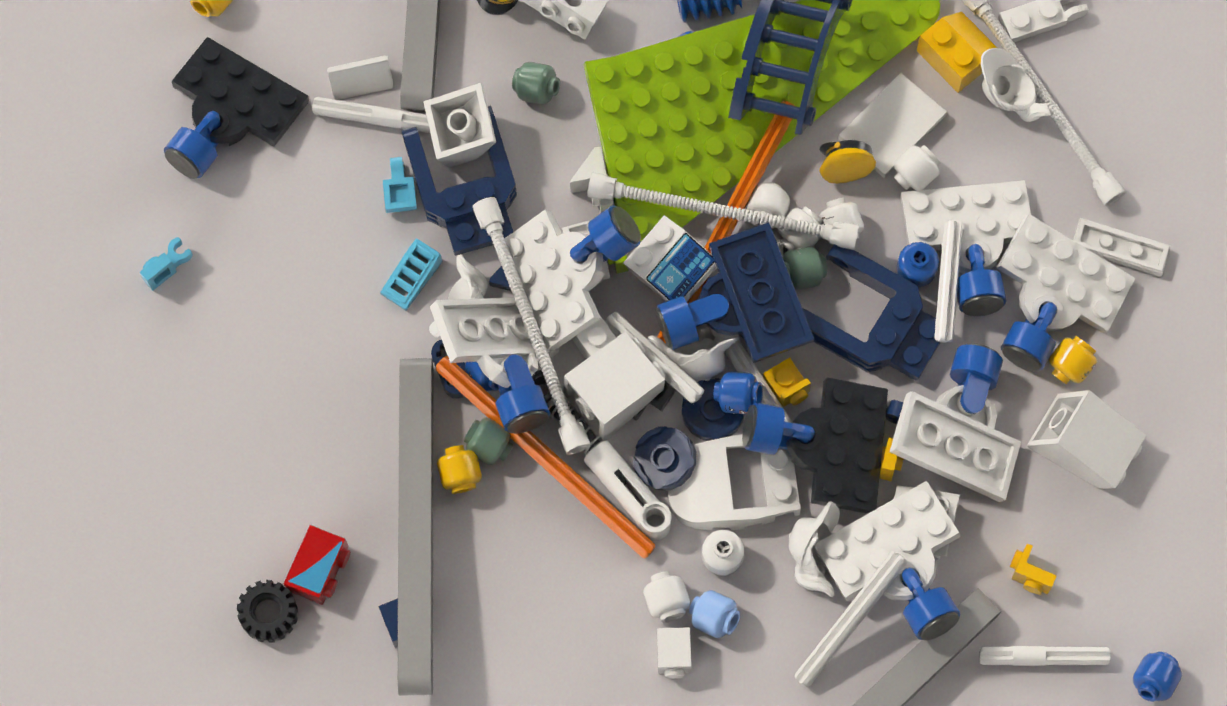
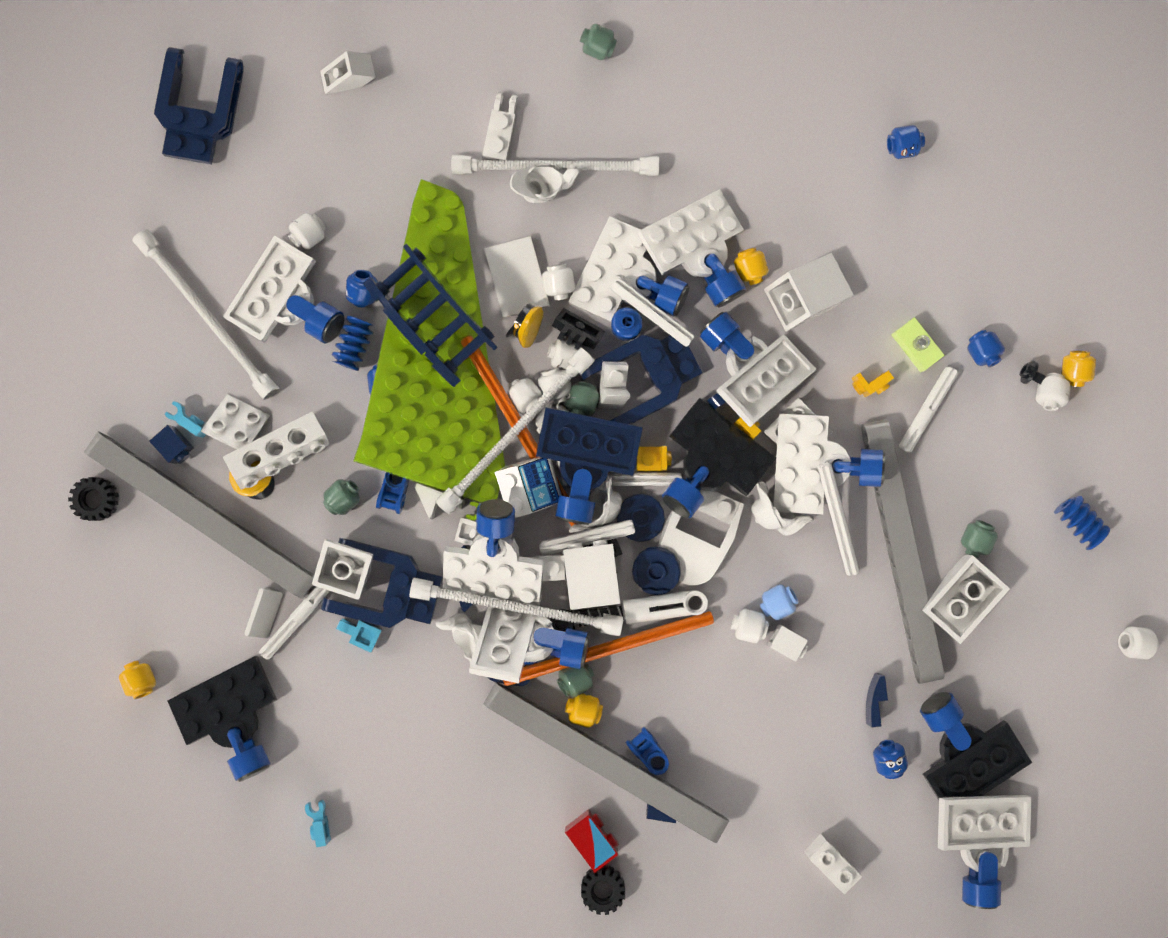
camera: 60 degrees left, 15 degrees up
(410, 257) = (411, 647): medium azure slope -> none
(458, 565) = (648, 750): none -> blue piece
(575, 132) = (392, 492): none -> blue piece
(722, 562) = (734, 572): white head -> none
(737, 392) = (644, 497): blue head -> none
(840, 288) = (613, 385): none -> white slope
(876, 217) = (577, 330): none -> black hinge
(955, 49) = (491, 200): yellow slope -> none
(1109, 598) = (917, 345): none -> yellowish green piece
(1122, 247) = (691, 184): white tile -> none
(1205, 57) = (598, 42): none -> sand green head

